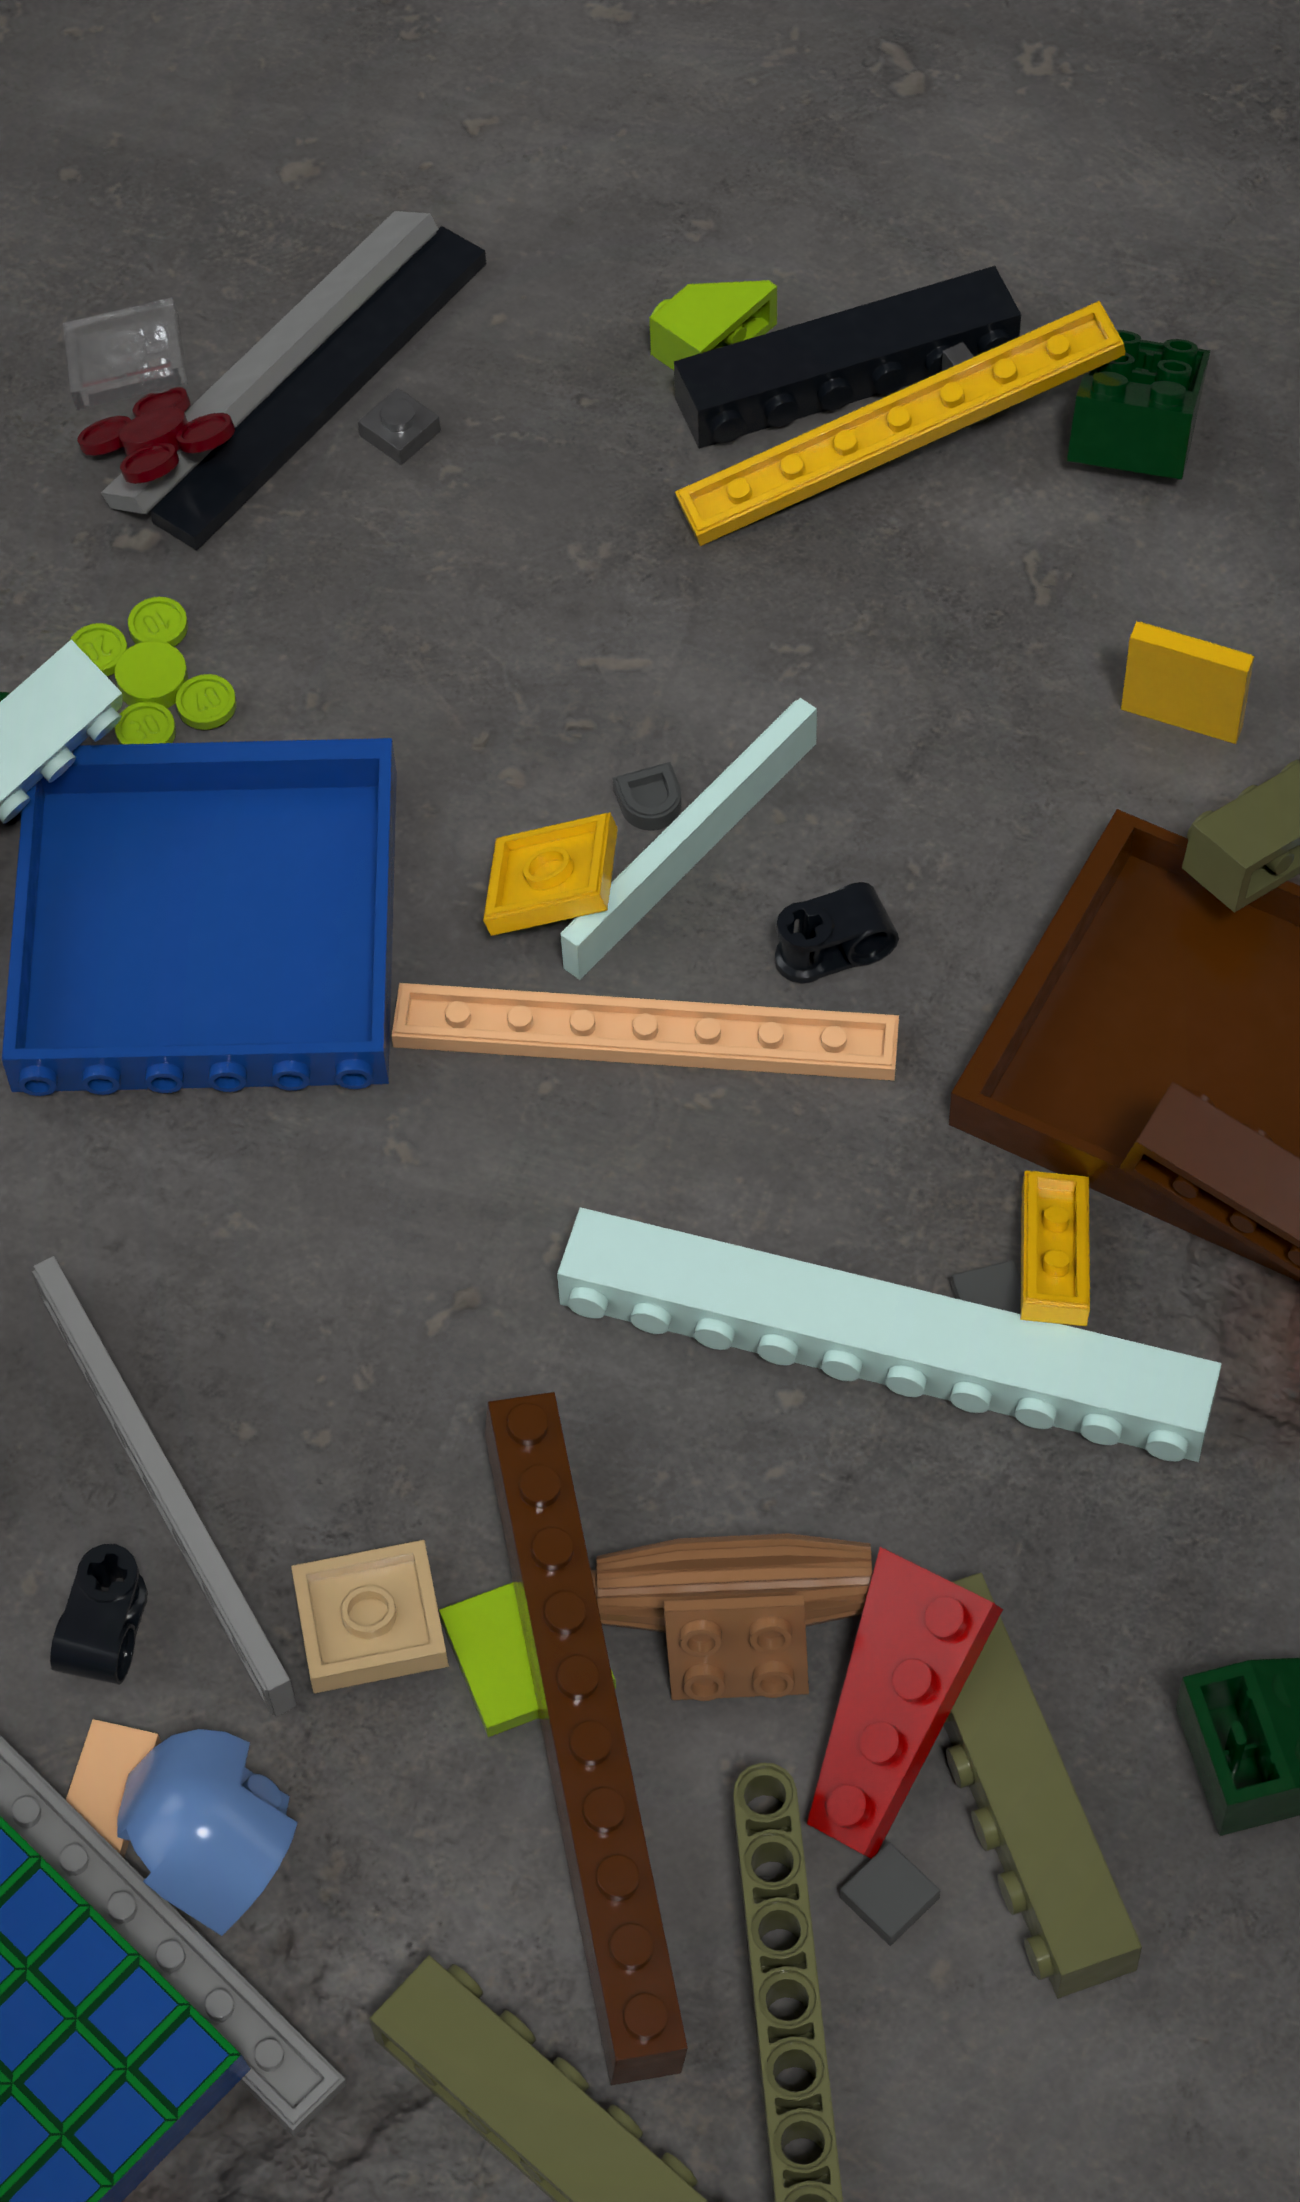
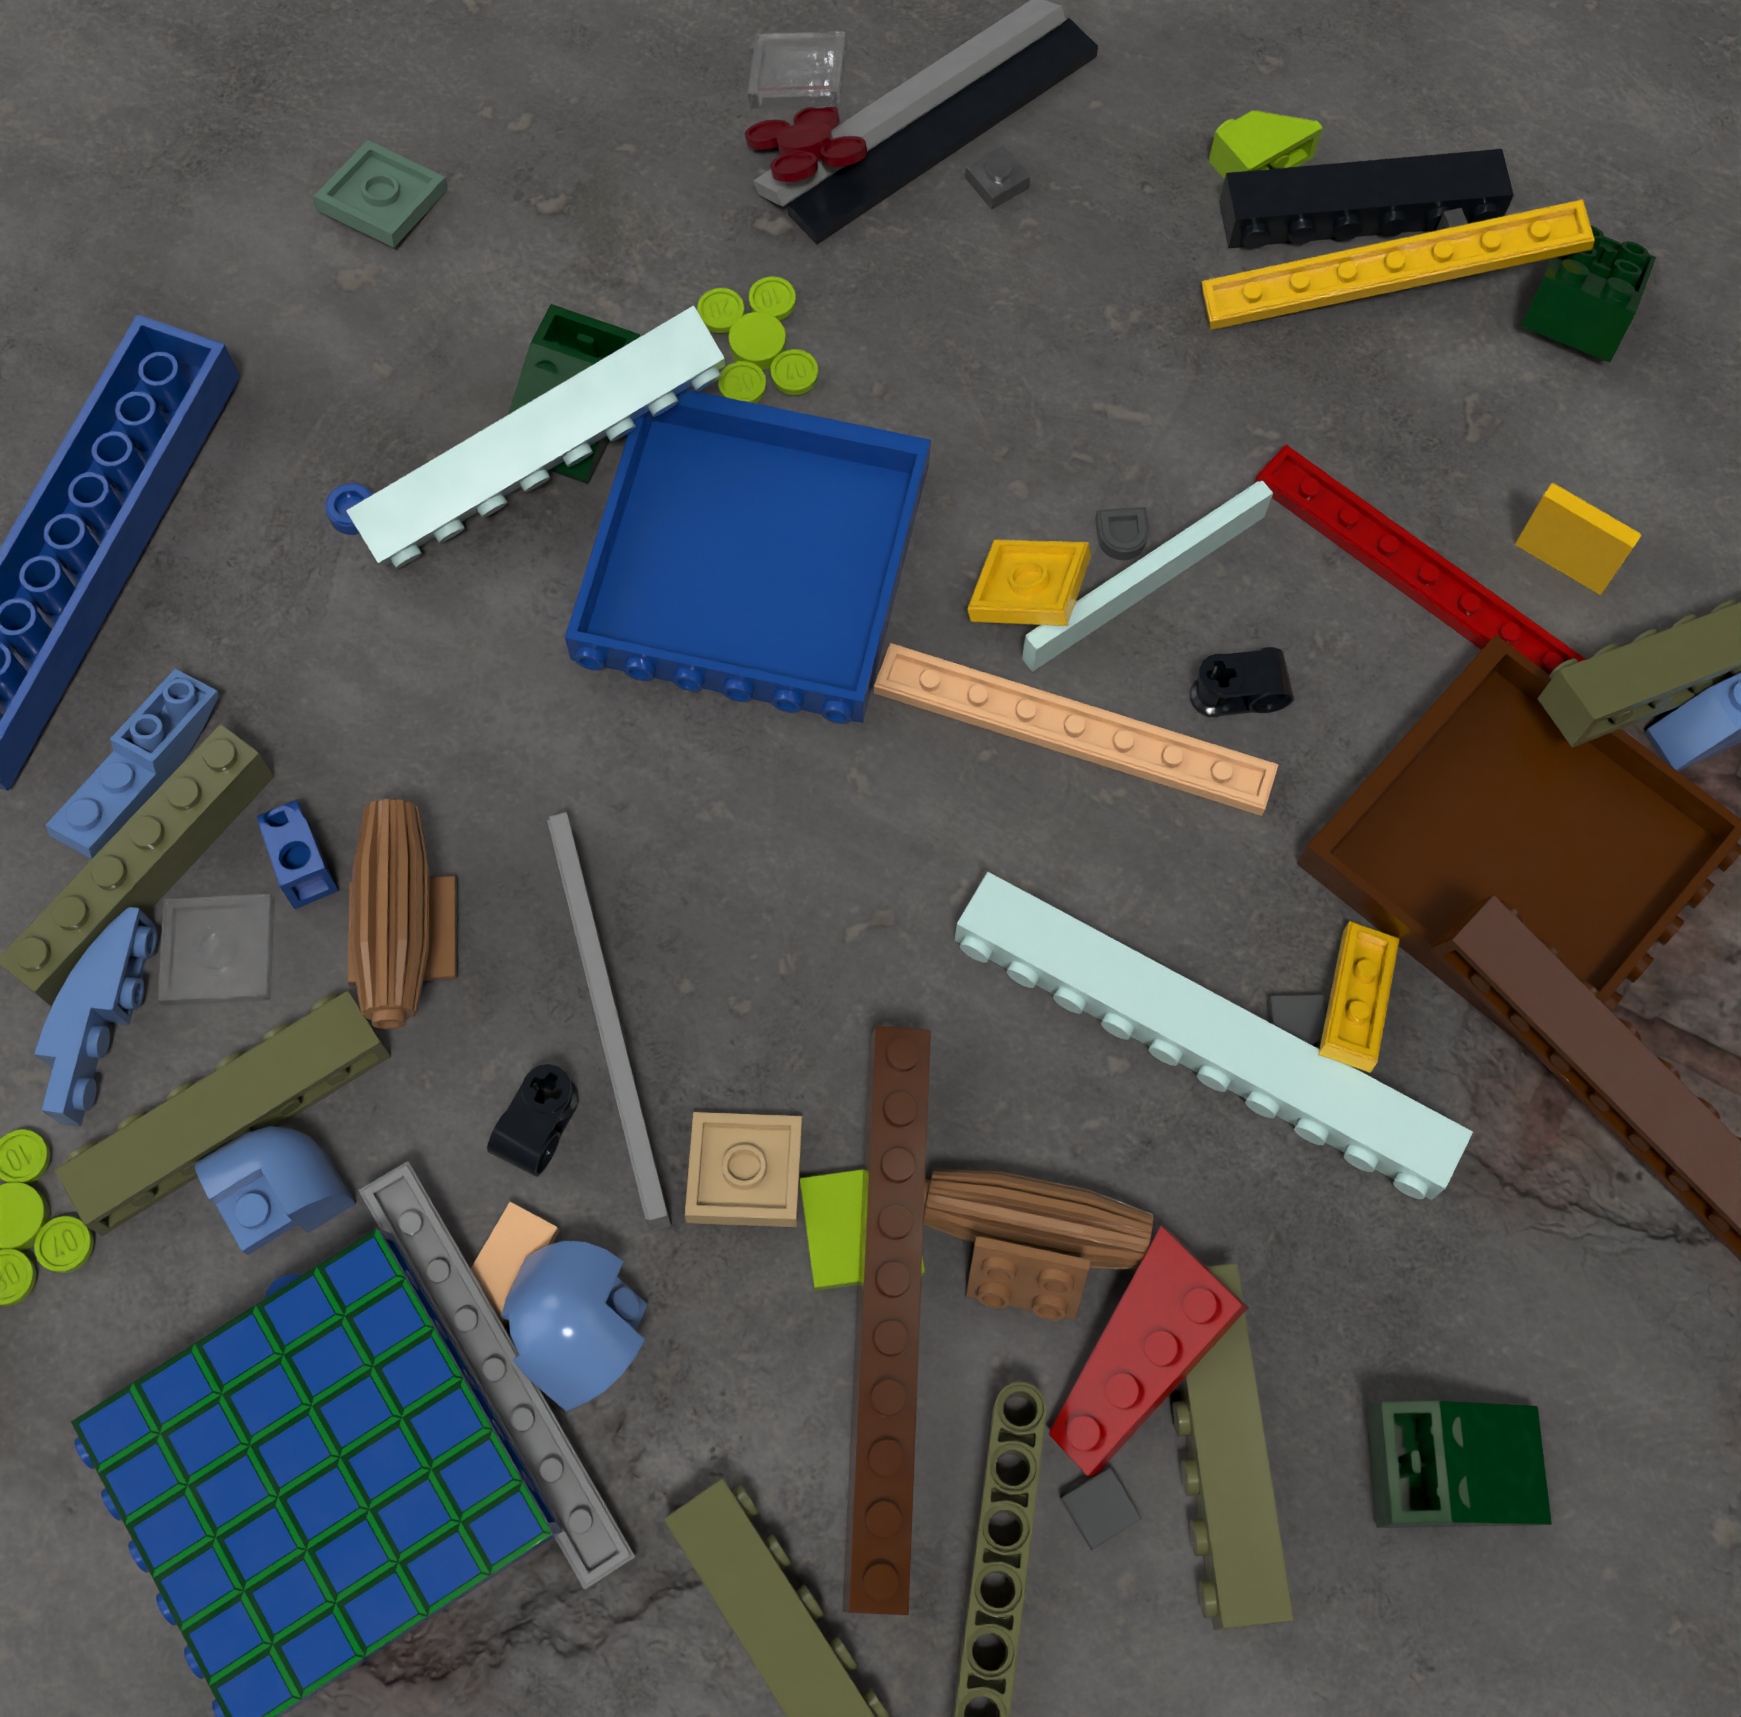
camera: 10 degrees right, 10 degrees up
(987, 751) = (1406, 560): none -> red tile

